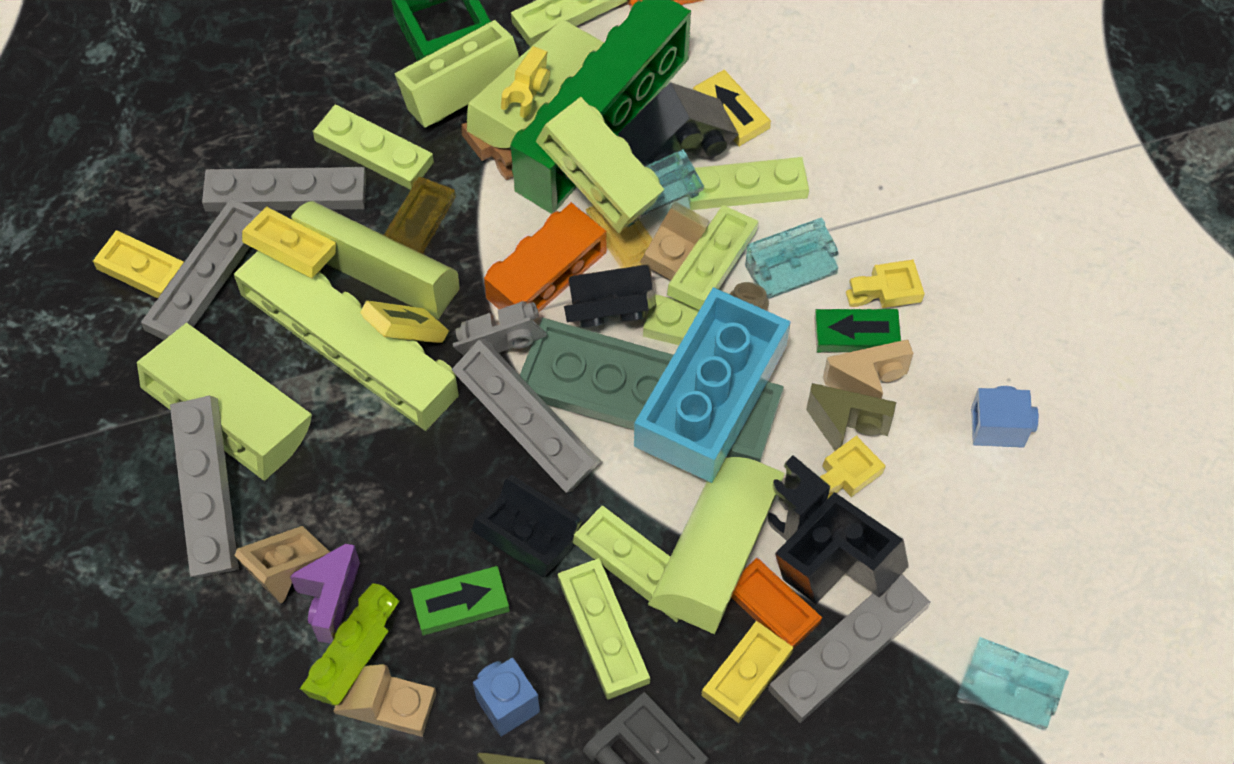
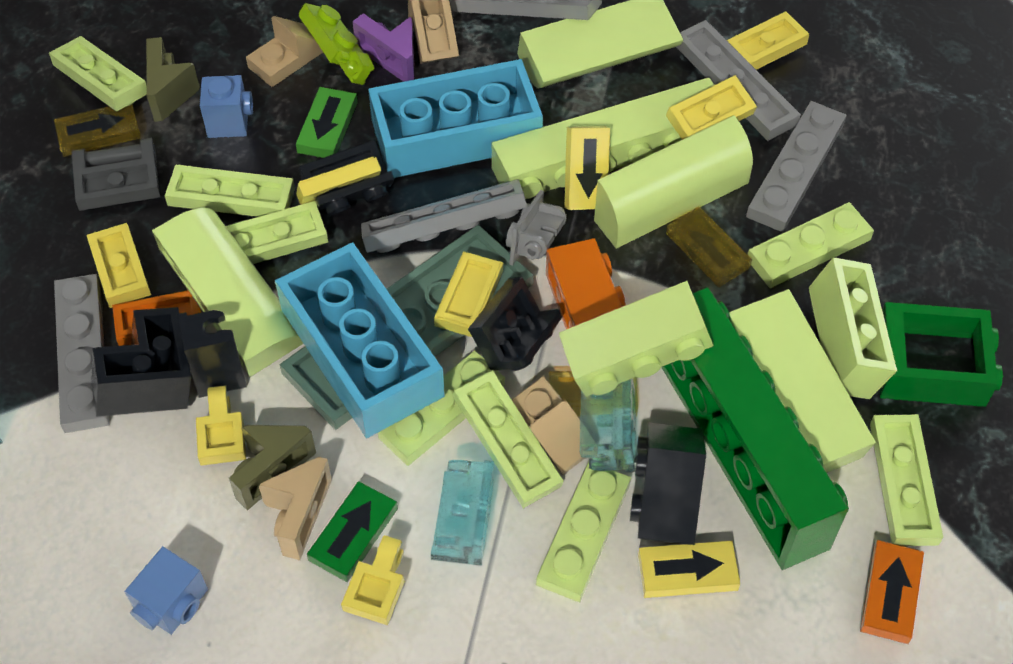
camera: 120 degrees right, 5 degrees down
(403, 465) = (452, 116): none -> medium azure brick
(529, 79) = (783, 338): light yellow plate -> none
(547, 515) = (337, 179): none -> light yellow tile
(598, 348) = (468, 292): none -> light yellow tile
(752, 294) = (452, 439): dark tan plate -> none

